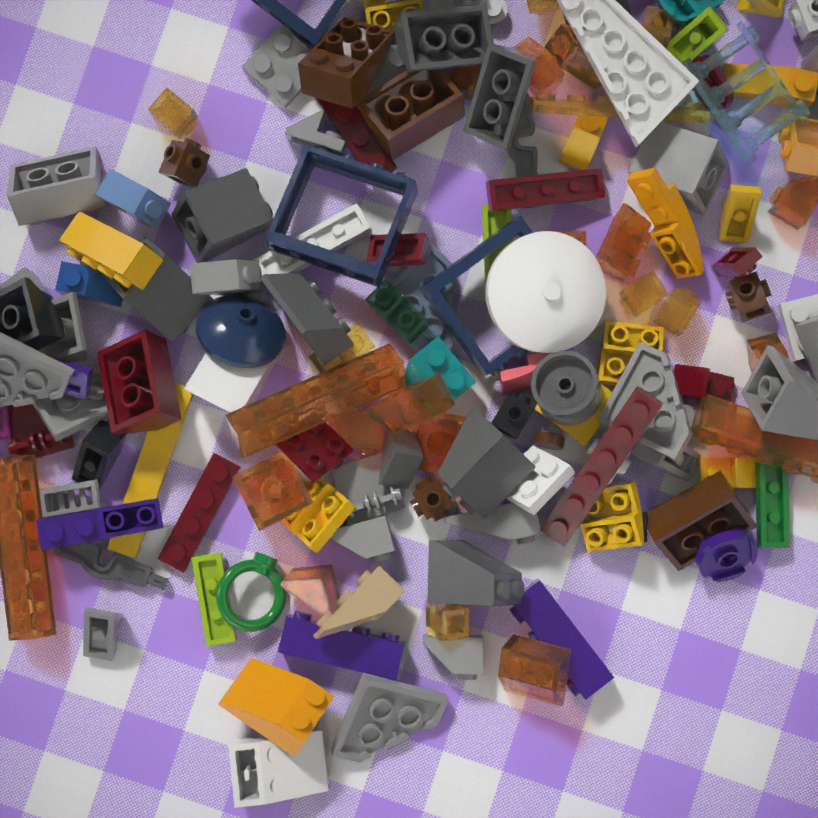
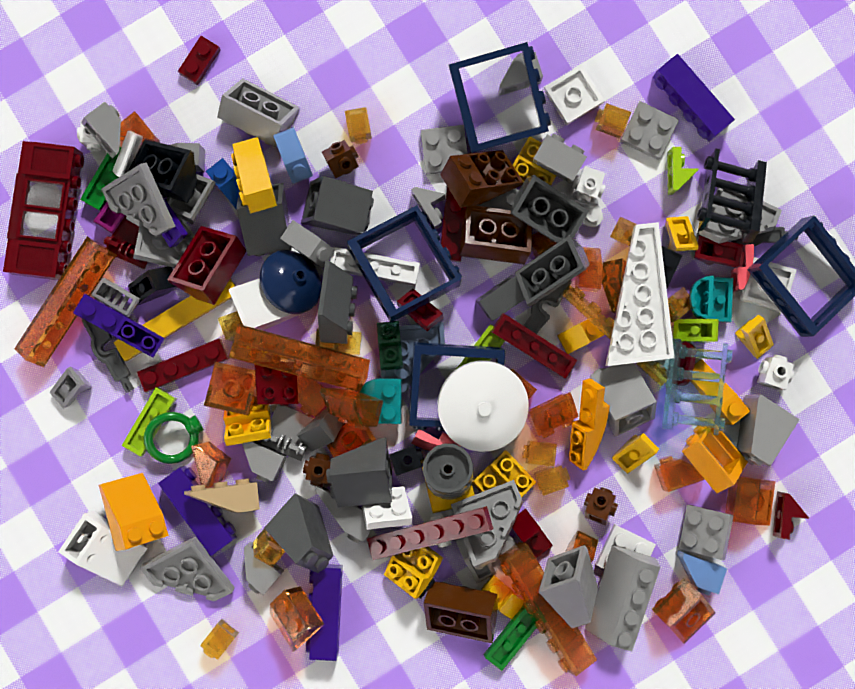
camera: 35 degrees right, 0 degrees up
(216, 425) = (229, 324): none -> clear yellow brick
(471, 169) = (501, 298): none -> dark grey hinge
(475, 760) = (219, 639): none -> clear yellow brick
(549, 440) = (415, 492): reddish brown tile -> none
(733, 543) = (460, 644): dark purple plate -> none
(737, 262) = (609, 480): dark red plate -> none

